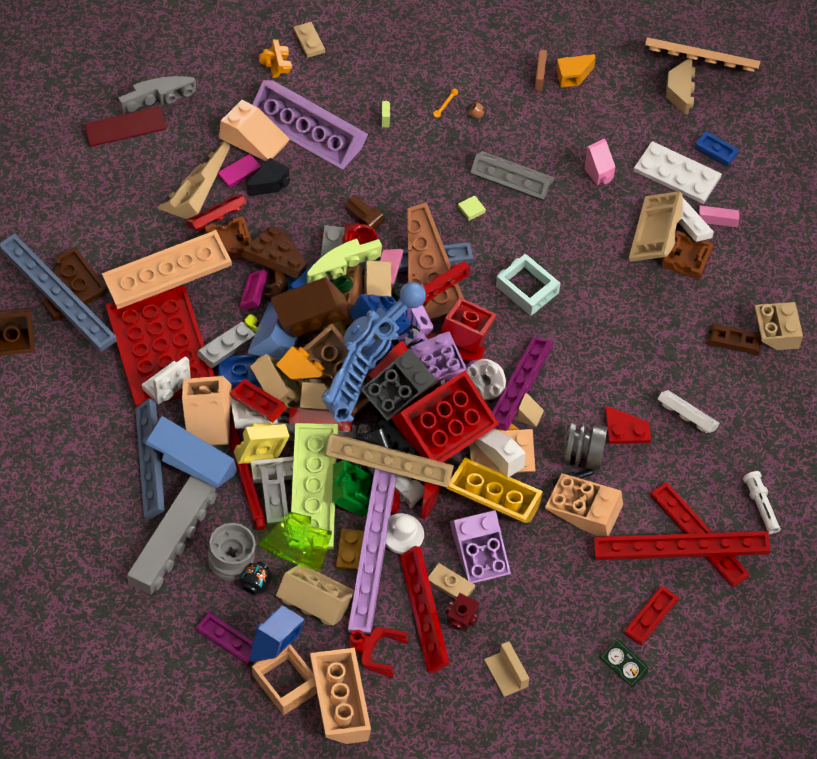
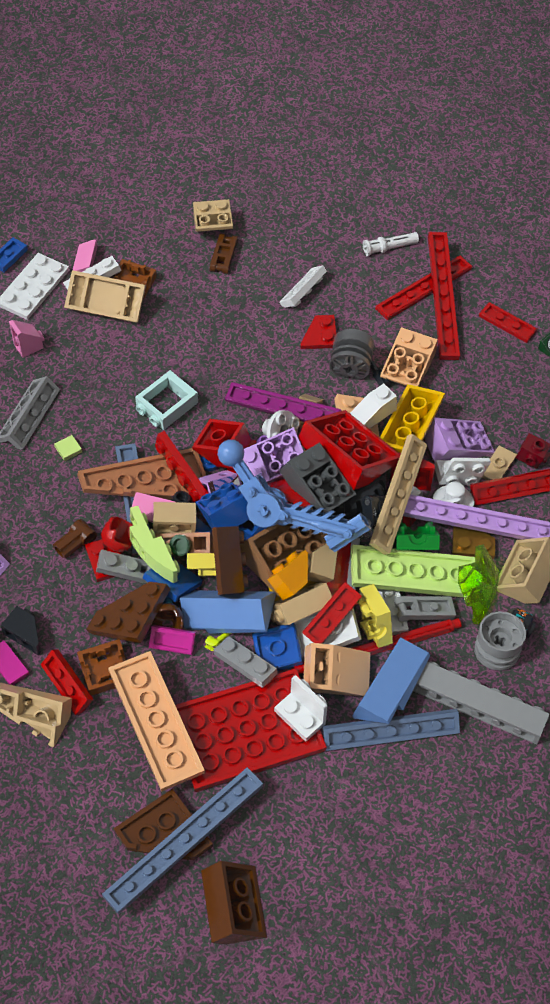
camera: 90 degrees left, 0 degrees up
(438, 540) = (461, 470): none -> white bracket

